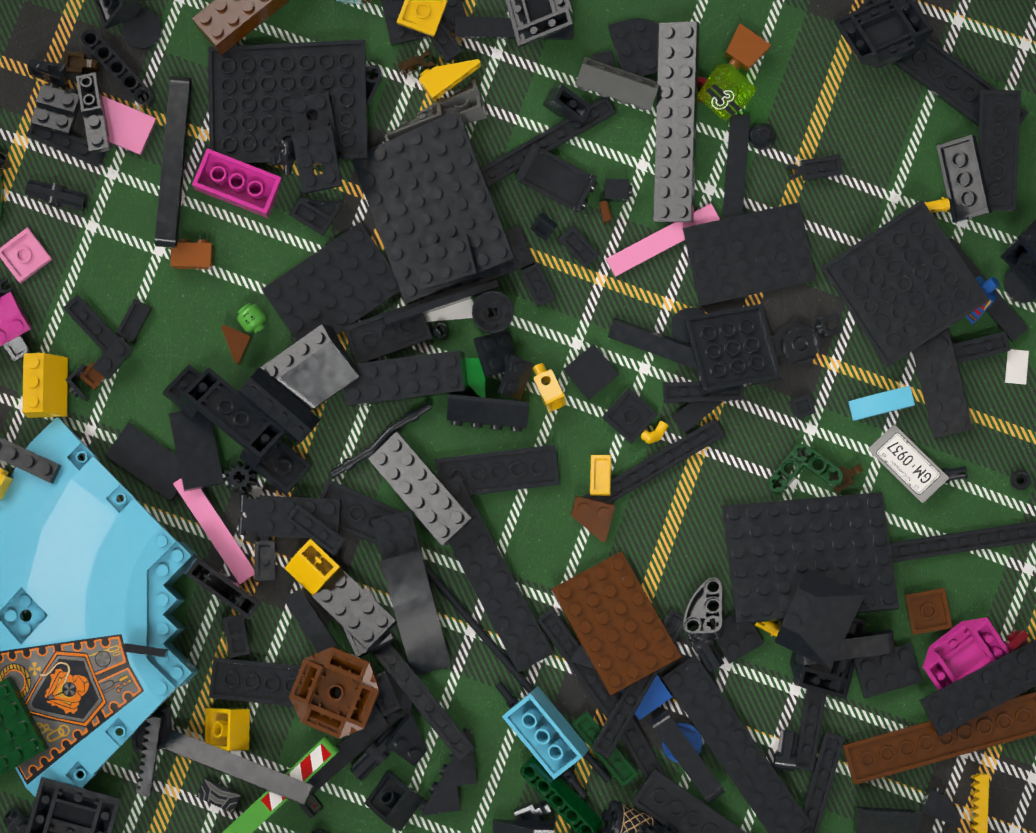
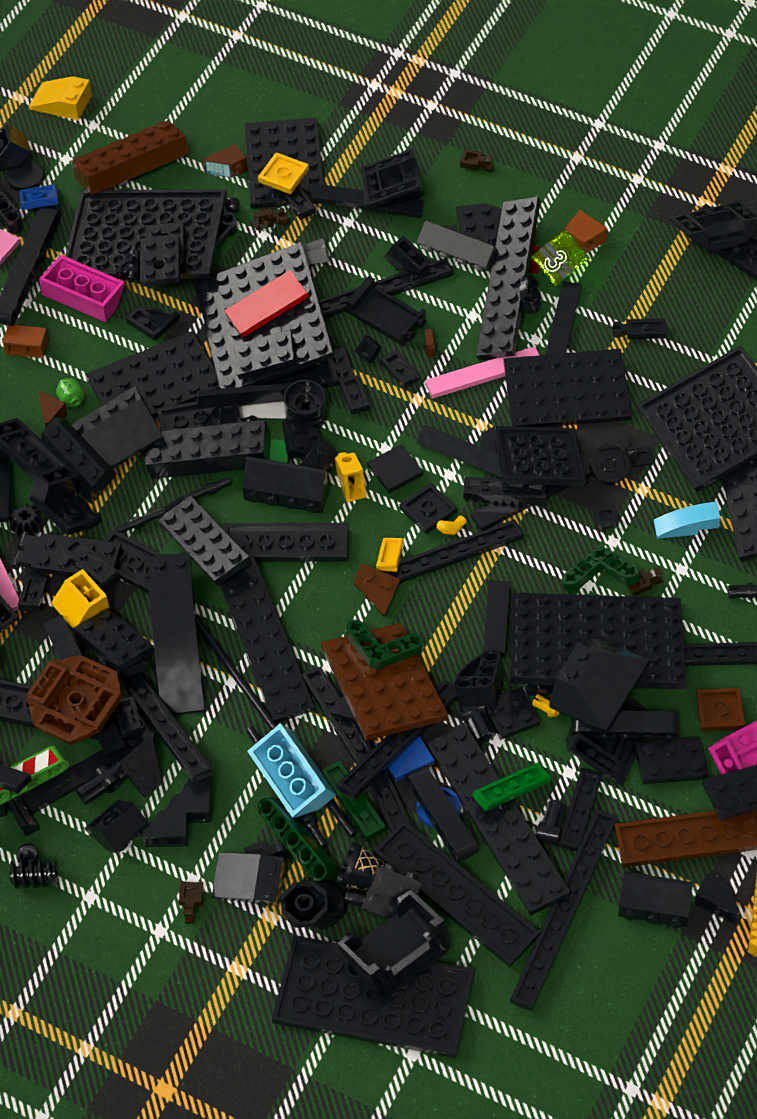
camera: 10 degrees right, 30 degrees down
(164, 62) = (38, 197): none -> blue tile
(373, 49) = (232, 205): none -> black hinge
(435, 196) = (266, 303): none -> tile
(443, 78) = (299, 229): yellow slope -> none
(611, 597) = (382, 652): none -> dark green beam
(617, 190) = (444, 327): black brick -> none
(700, 142) = (528, 294): none -> black tile
(710, 532) = (497, 616): none -> black tile
(747, 722) = (511, 786): none -> green tile
(762, 136) = (591, 301): black brick -> none
(908, 463) = (710, 576): sticker -> none

